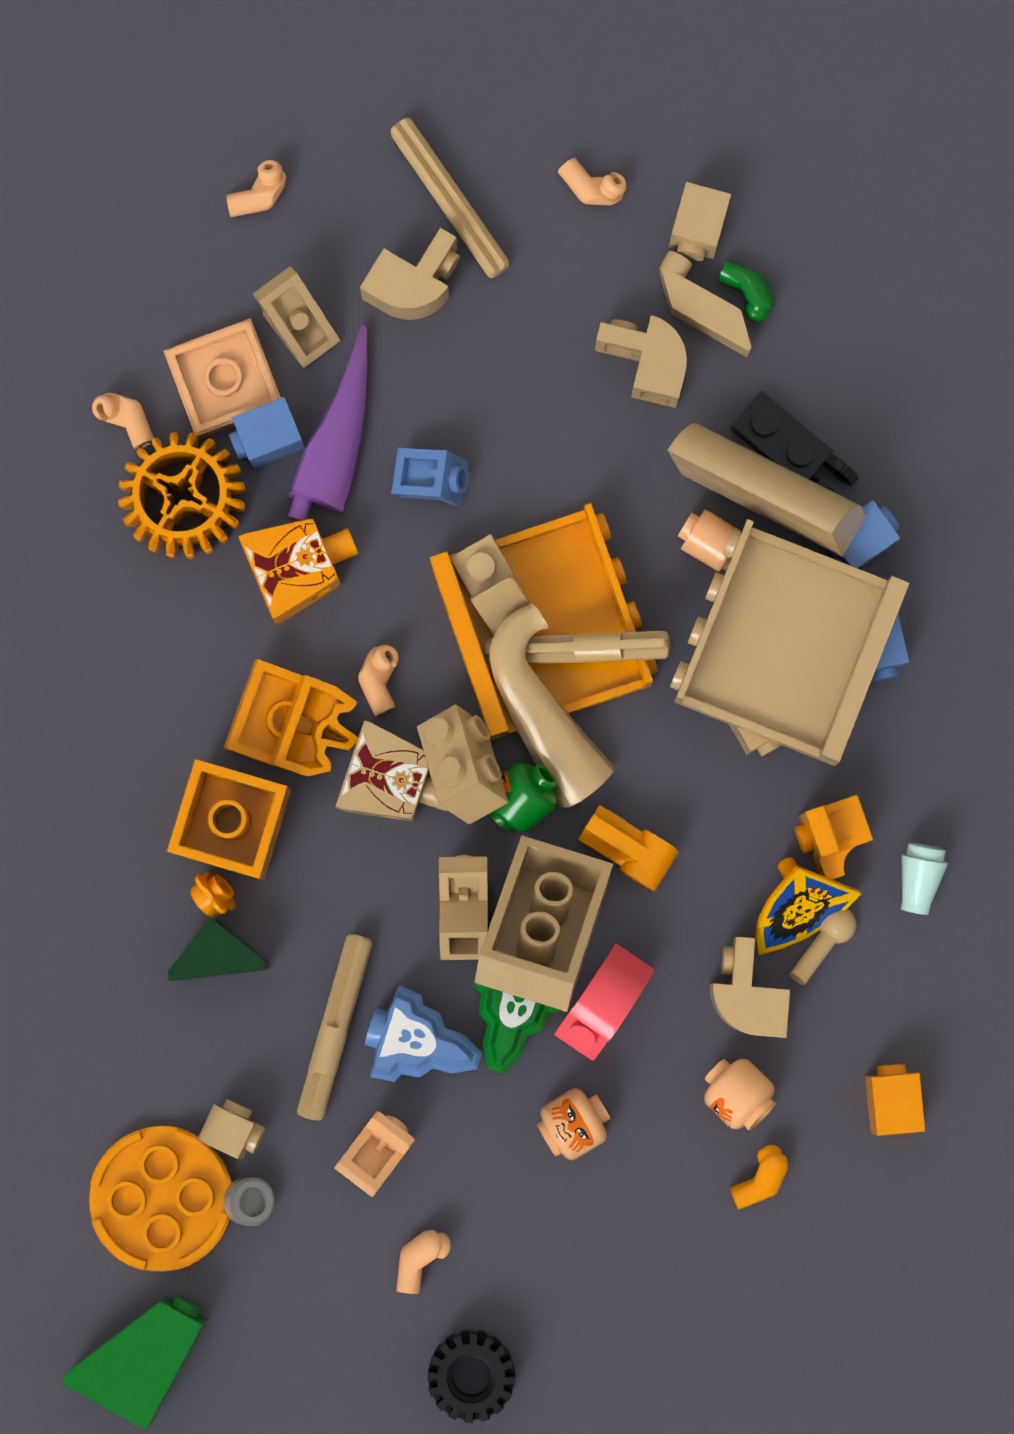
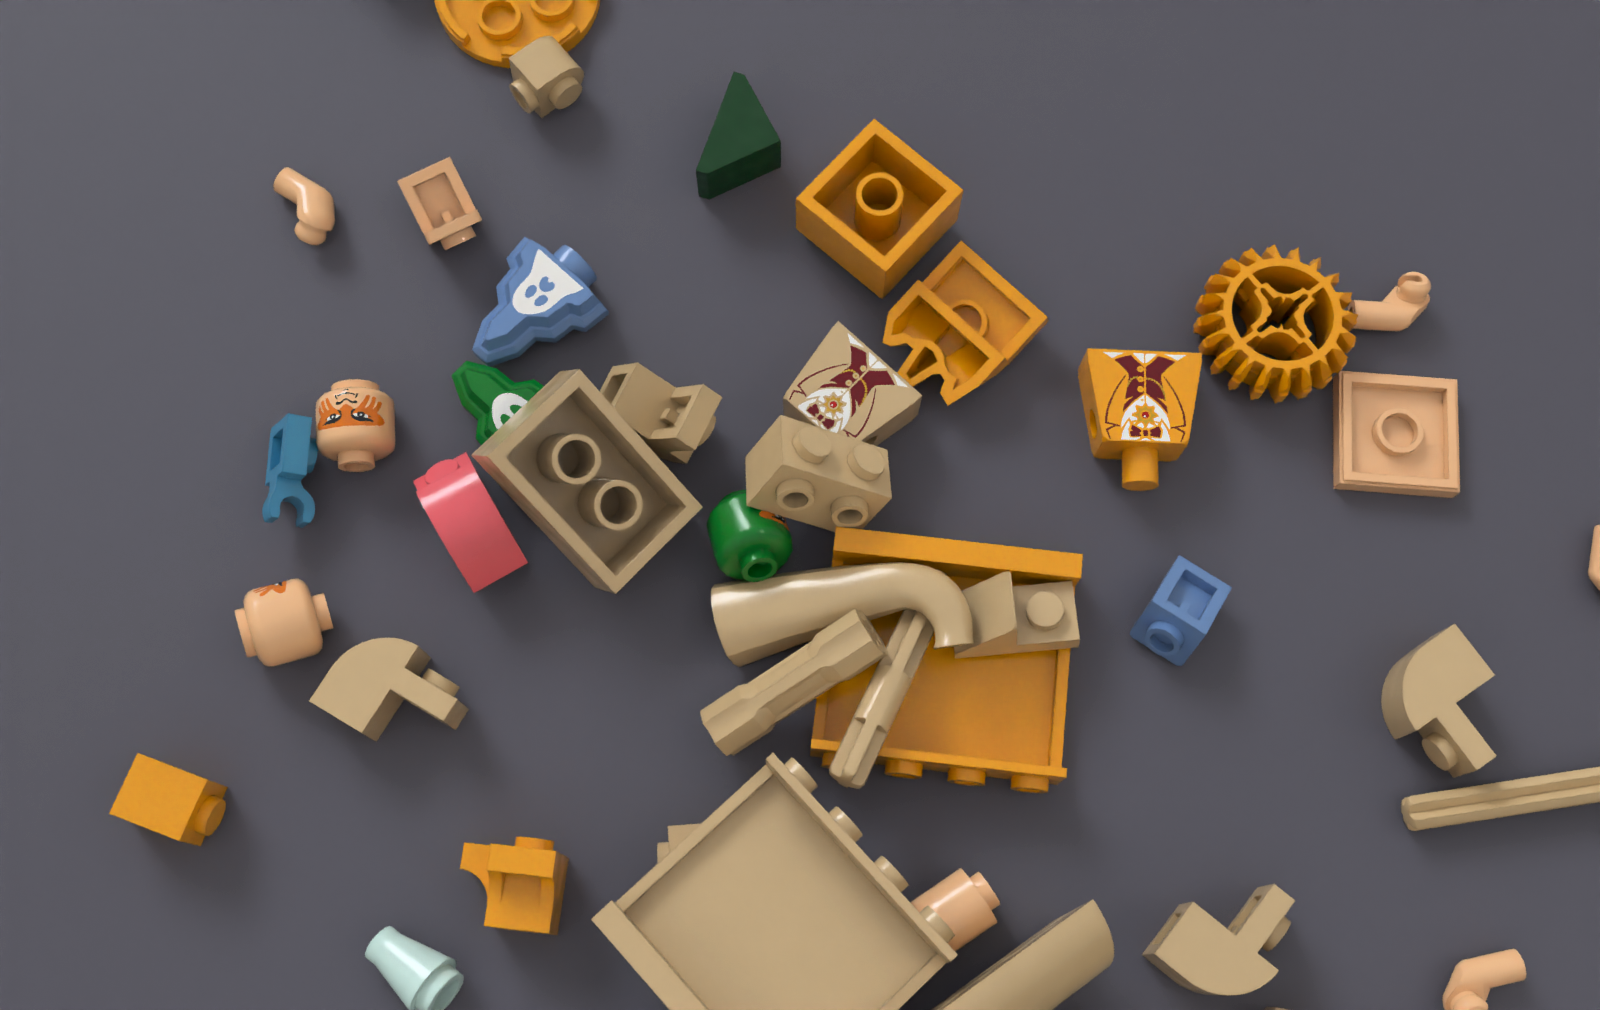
camera: 115 degrees right, 10 degrees down
(212, 894) = (803, 163): light orange plate -> none
(249, 1201) = (464, 65): light grey tile -> none
(266, 434) = (1311, 447): medium blue brick -> none
(296, 317) = (1444, 538): tan slope -> none
(332, 453) = (1260, 512): medium lavender piece -> none
(334, 1027) = (600, 229): tan axle -> none
(375, 676) = (968, 443): light nougat arm -> none
(478, 1405) = (140, 176): black tyre -> none
(590, 698) = (830, 658): none -> tan axle
(626, 1156) = (289, 460): none -> dark azure plate
(637, 852) = (615, 641): light orange piece -> none
(766, 1181) = (174, 610): light orange arm -> none
(799, 907) = (456, 799): shield -> none
(834, 930) = (415, 837): tan bar -> none

